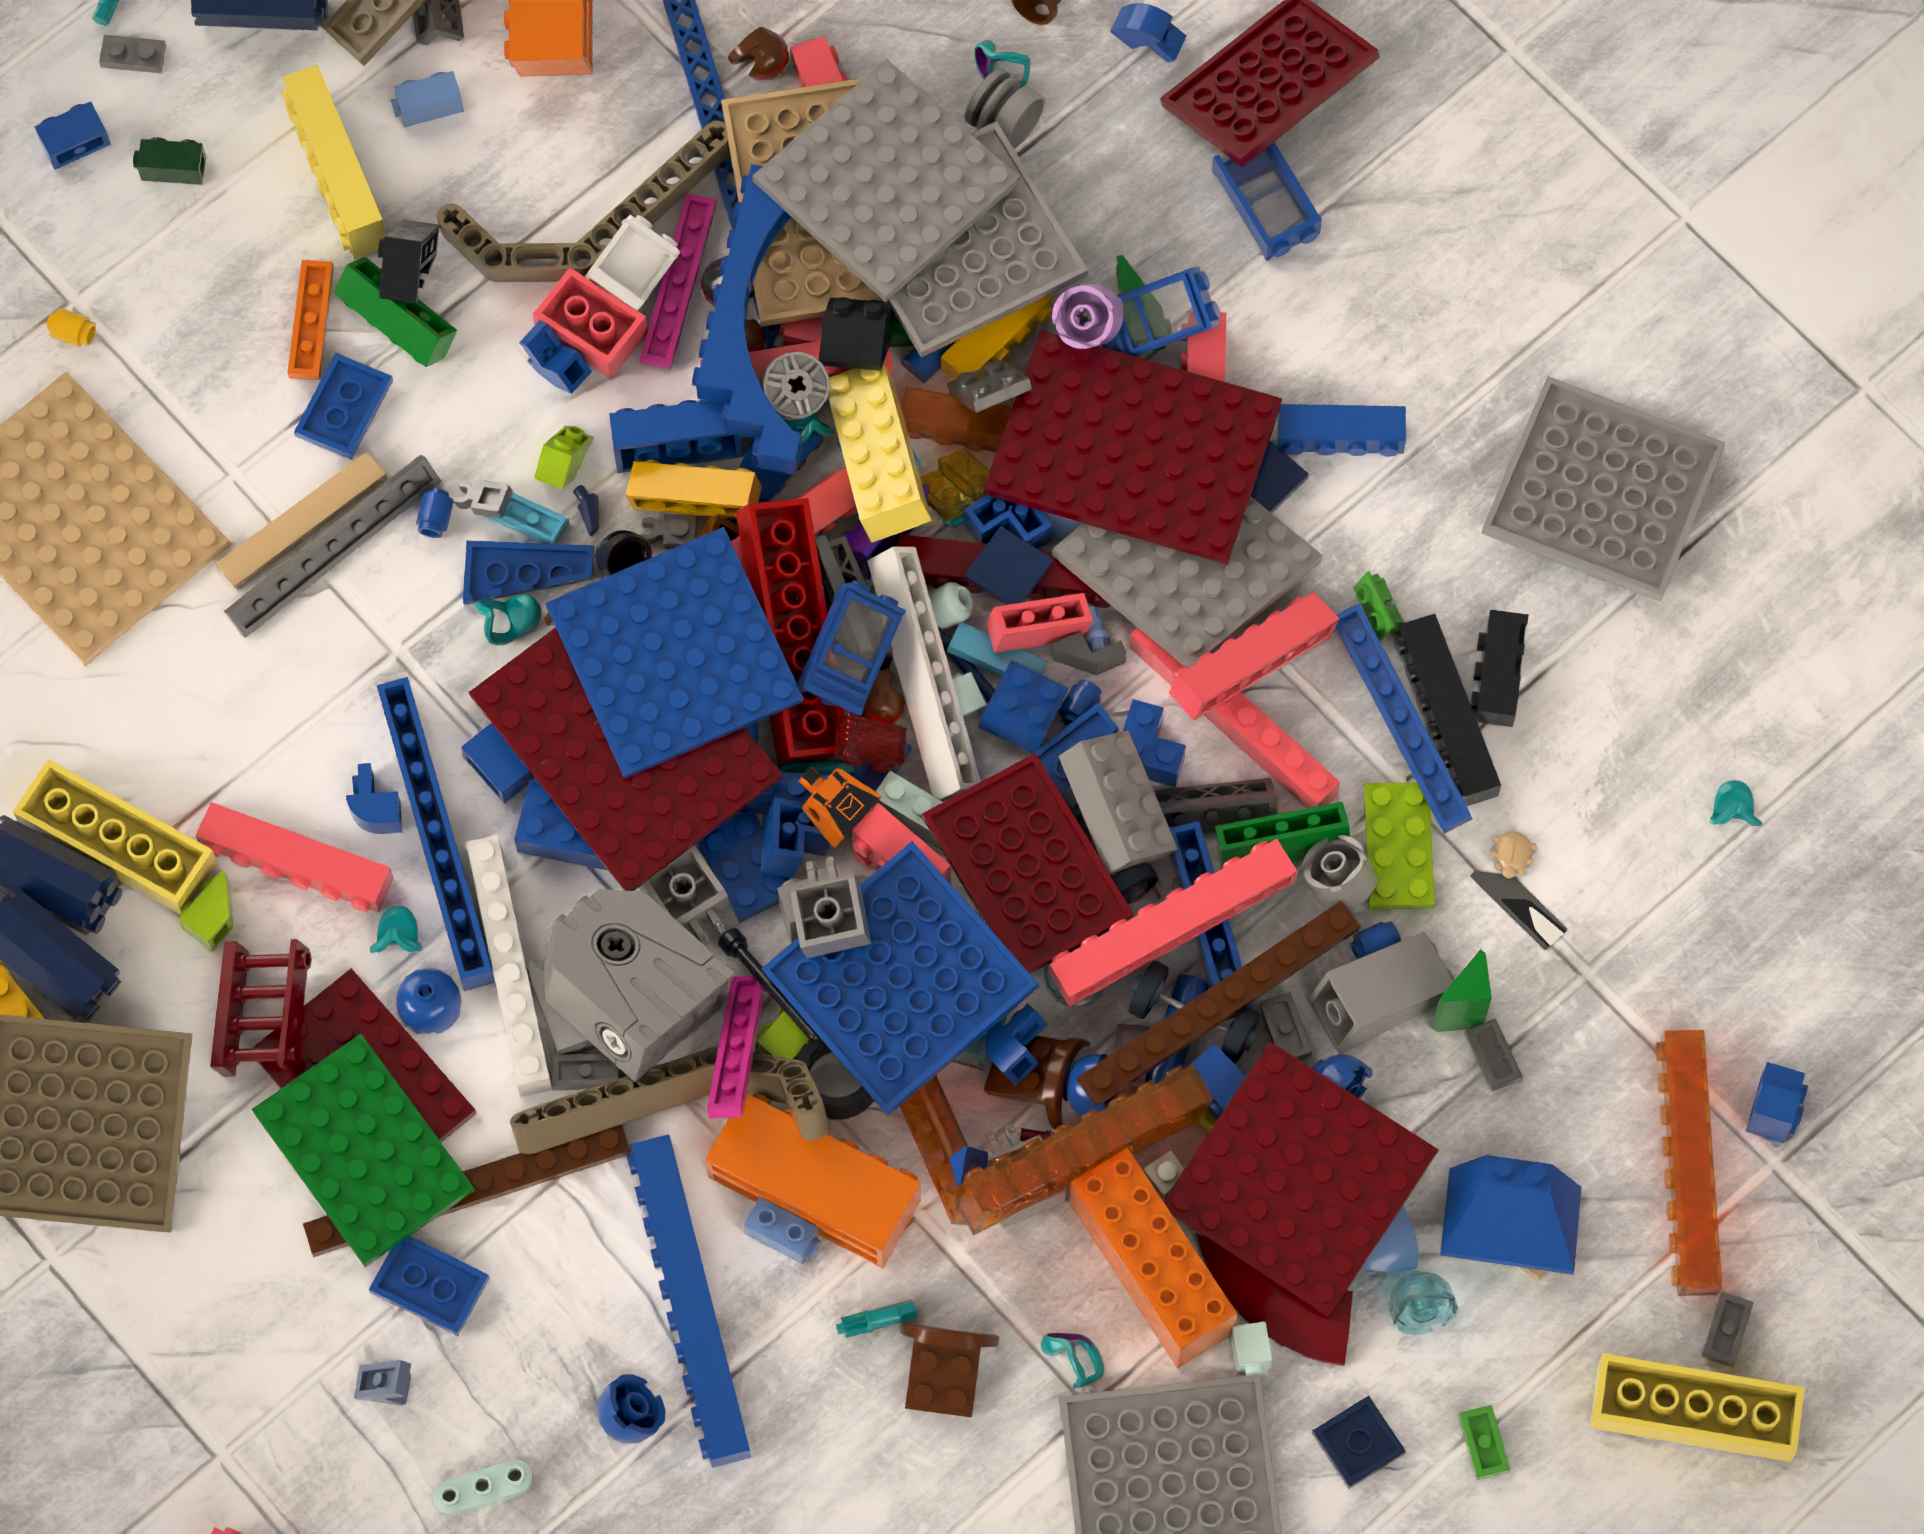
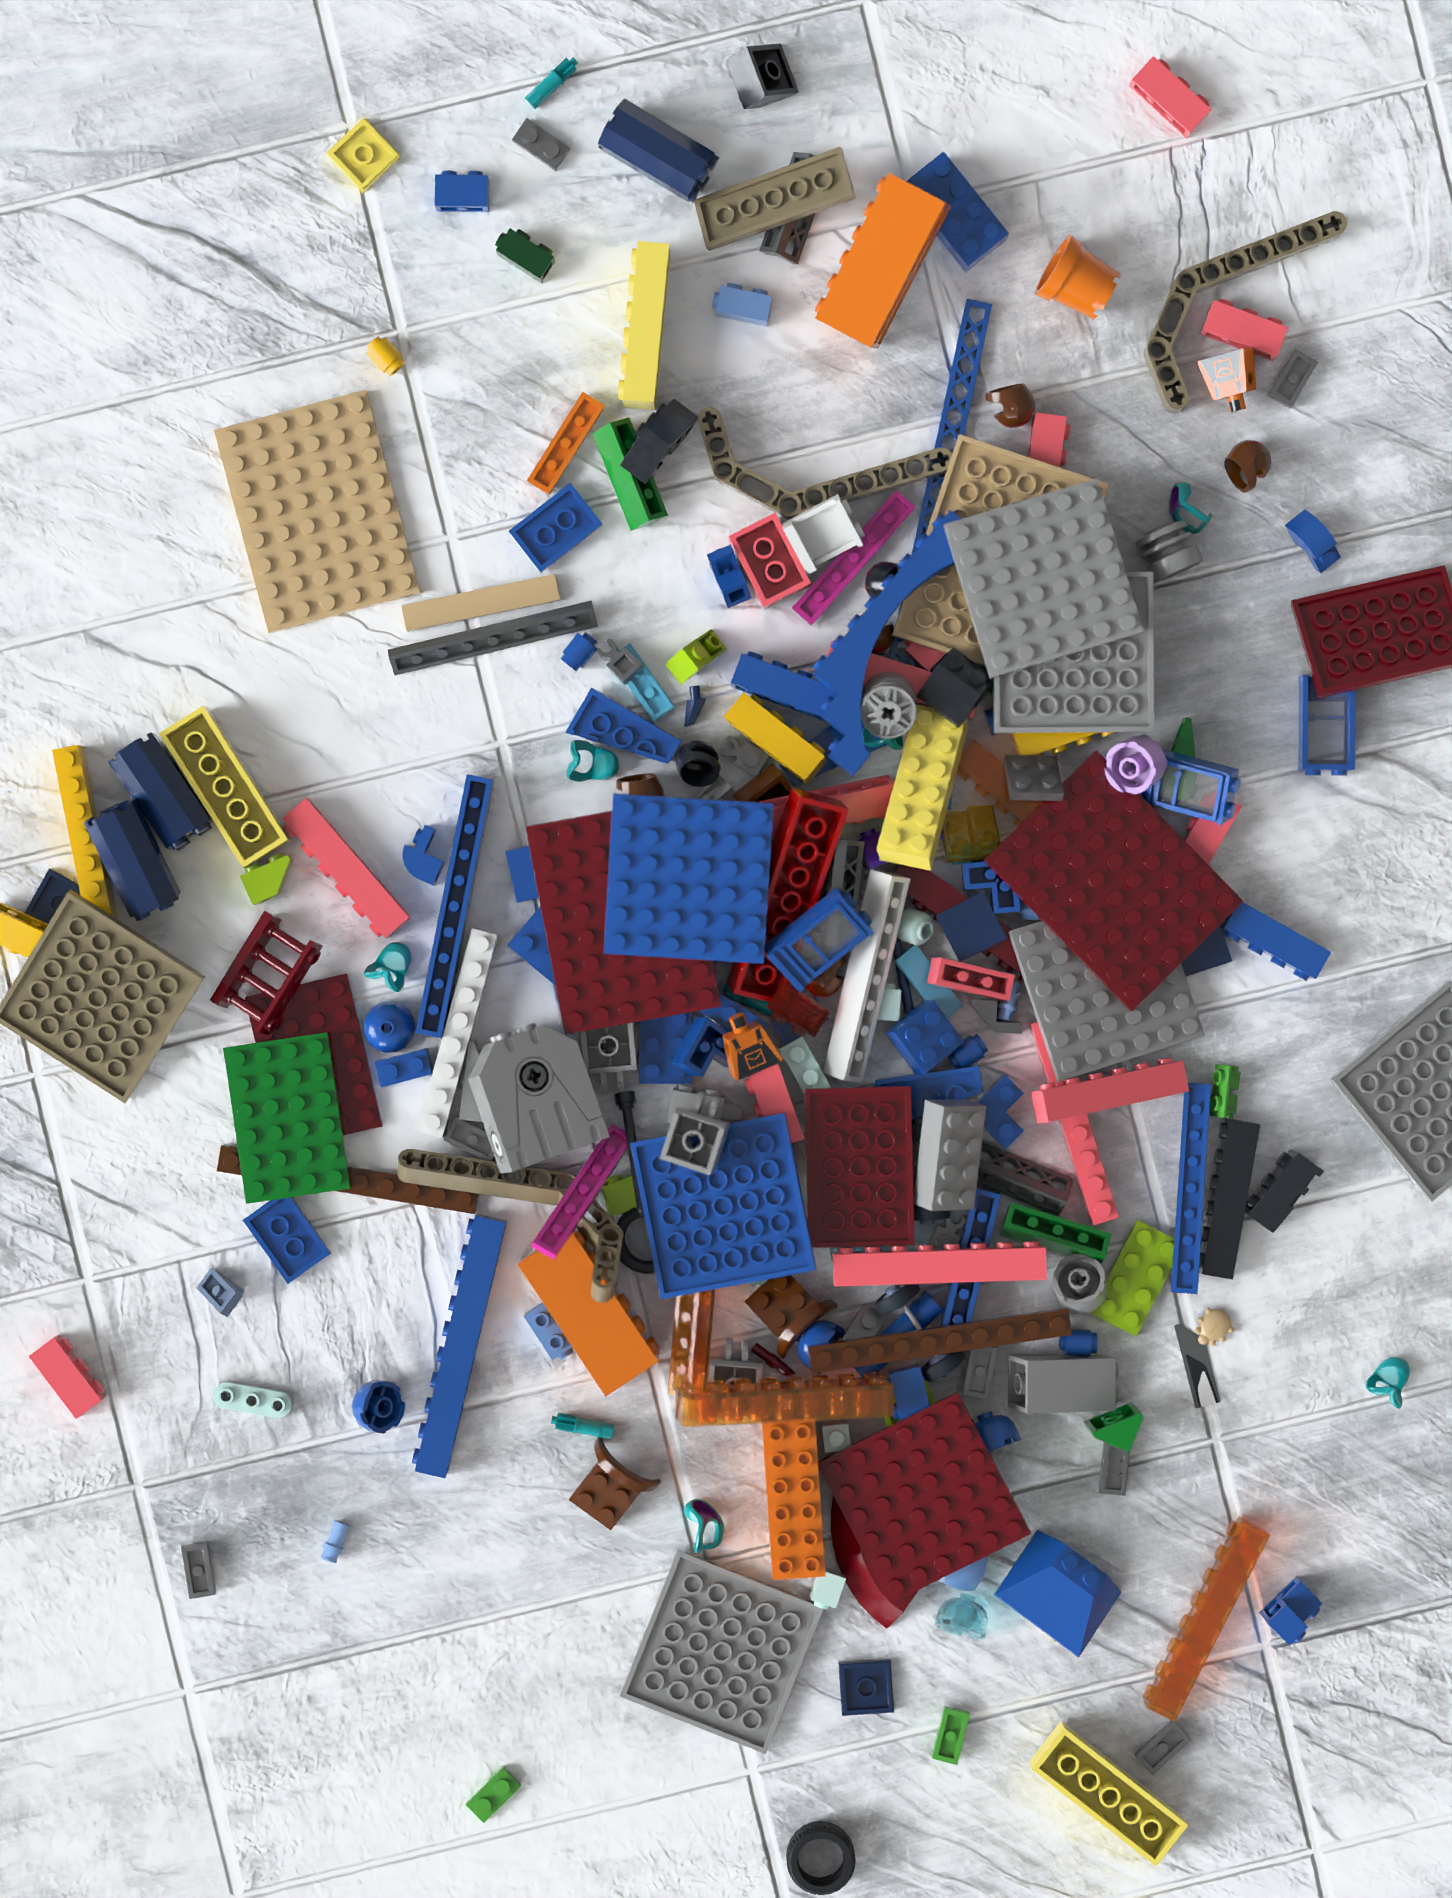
camera: 25 degrees right, 20 degrees up
(468, 1031) = (404, 1067): none -> blue brick
(967, 1160) = (698, 1368): blue slope -> none
(1007, 1043) = (773, 1294): blue brick -> none

